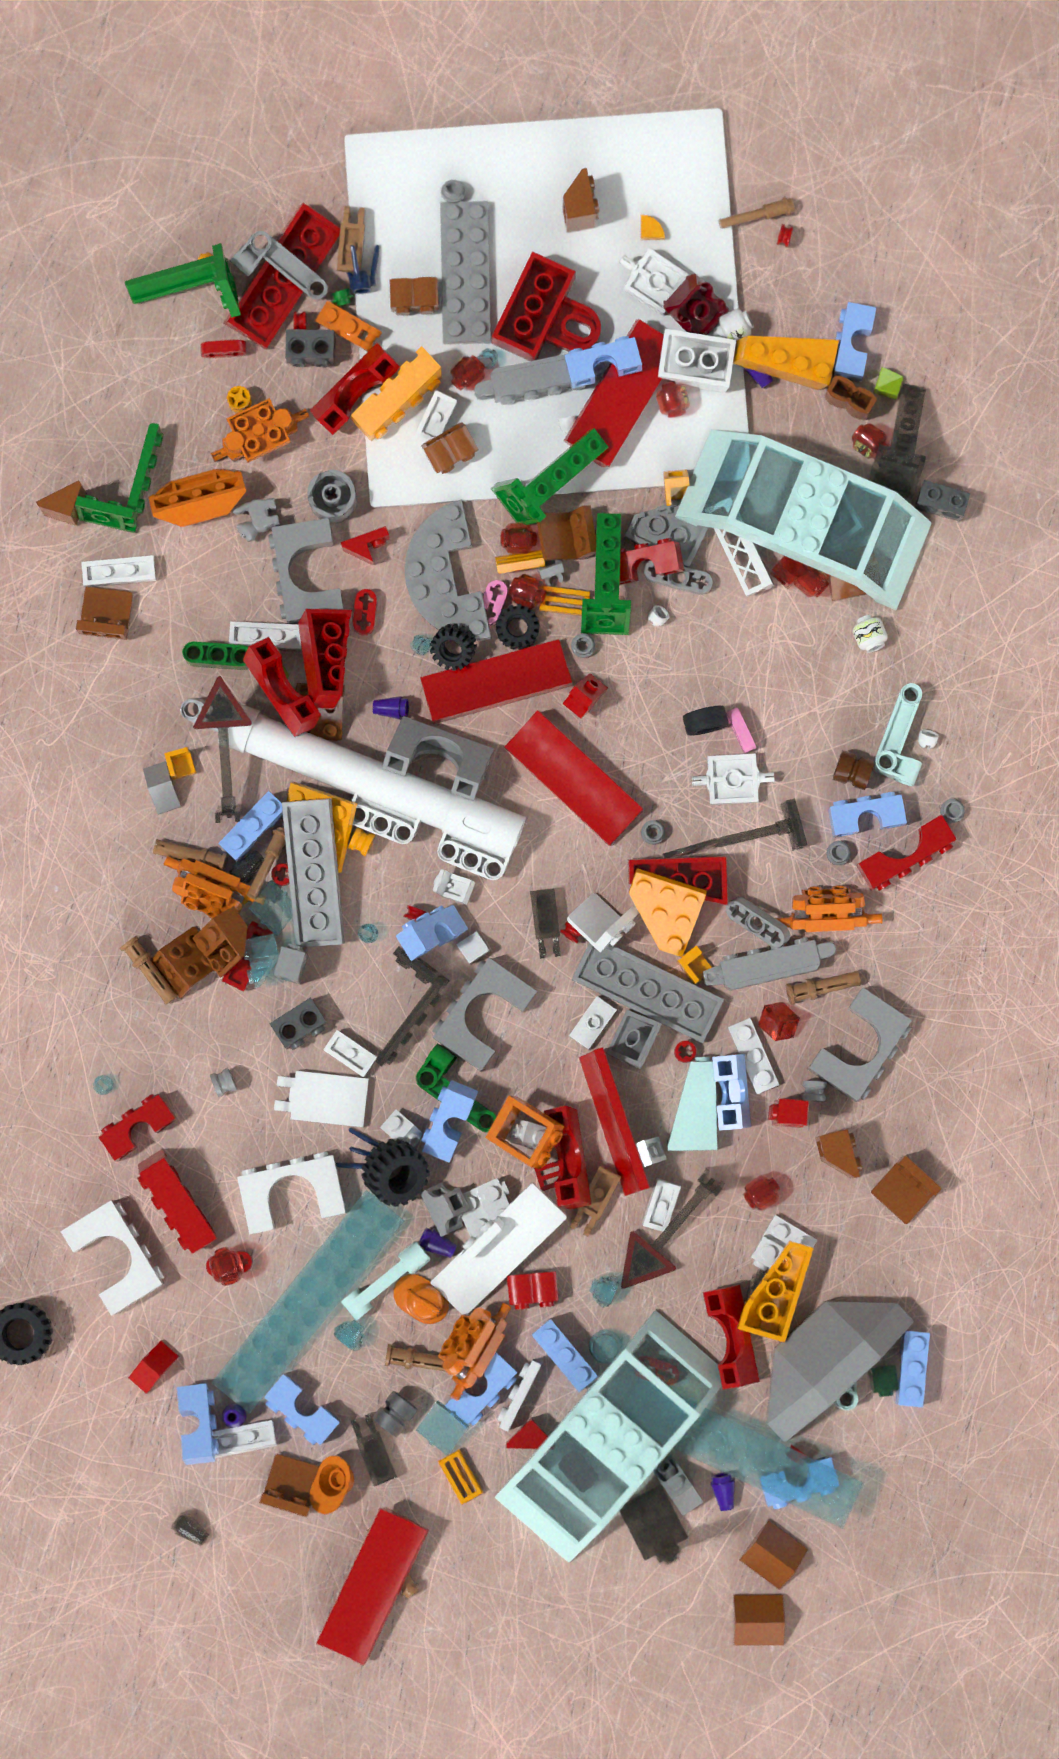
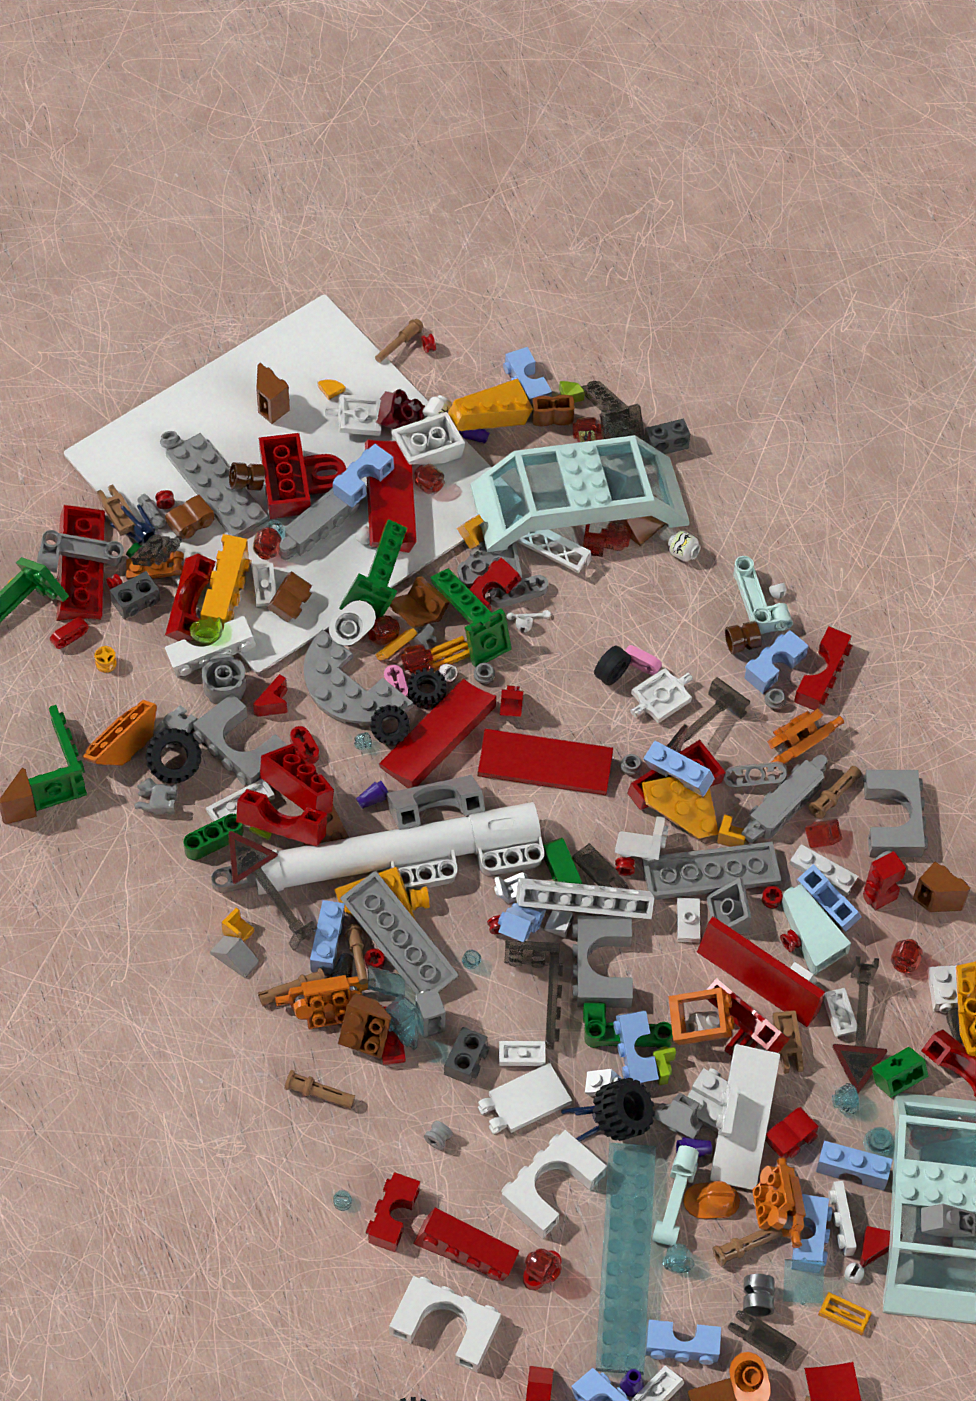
camera: 35 degrees left, 25 degrees down
(105, 613) = (104, 860): dark orange bracket -> none
(118, 571) = (93, 825): white plate -> none
(182, 963) = (343, 1068): dark orange bracket -> none
(195, 582) = (159, 799): none -> light grey animal
(223, 568) = (192, 750): none -> black tyre
(258, 431) = (135, 669): orange piece -> none
(344, 440) = (206, 630): none -> clear neon green hair
(356, 314) = (156, 550): none -> clear smoke plate
(371, 458) = (234, 639): none -> white arch
(383, 262) = (151, 511): none -> light grey axle
(403, 258) = (165, 499): none -> red bush
(463, 1151) = (663, 1057): none -> lime bracket
(489, 515) = (352, 623): none -> white piece
(492, 287) = (246, 476): none -> reddish brown wheel
(492, 1442) = (859, 1274): none -> white hinge
(505, 947) = (584, 898): none -> white brick
(512, 897) = (560, 862): none -> green beam
(548, 623) = (449, 672): none -> white hinge
(588, 1477) = (947, 1221): none -> light grey slope
(668, 1106) = (790, 940): none -> red bush
(669, 1298) = (900, 1072): none -> green brick
(678, 892) = (672, 763): none -> light blue arch
(687, 618) = (545, 614): none -> white hinge
(952, 810) = (832, 621): light grey plate -> none

